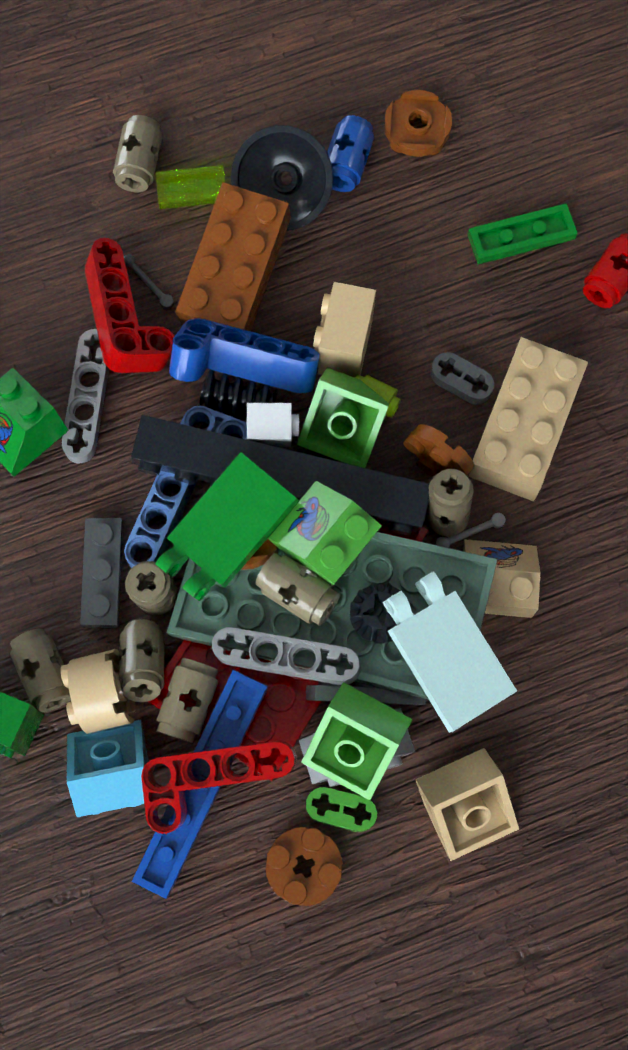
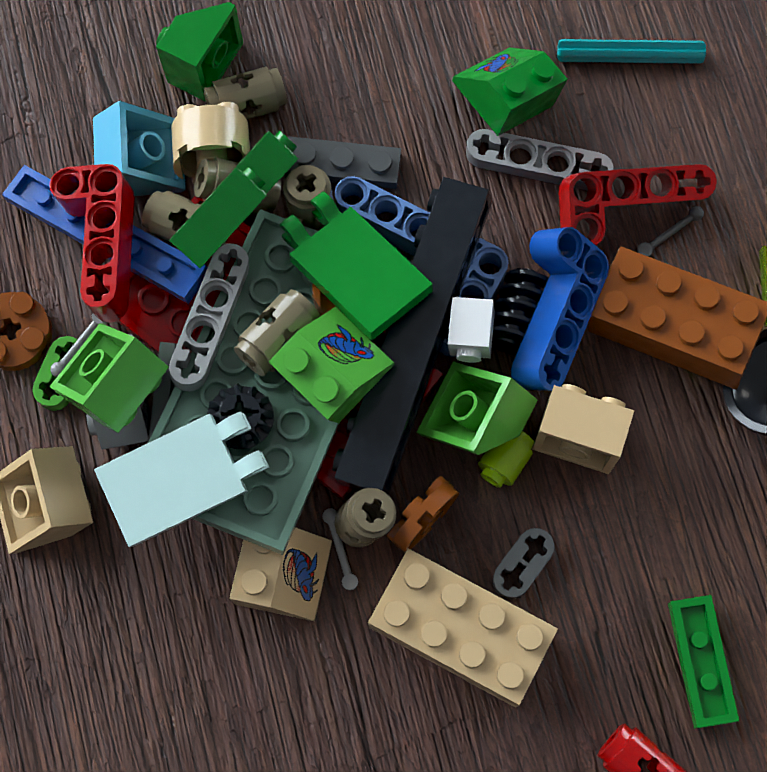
camera: 100 degrees right, 0 degrees up
(167, 640) = (235, 198): none -> green arch
(341, 806) = (57, 367): none -> light grey hinge

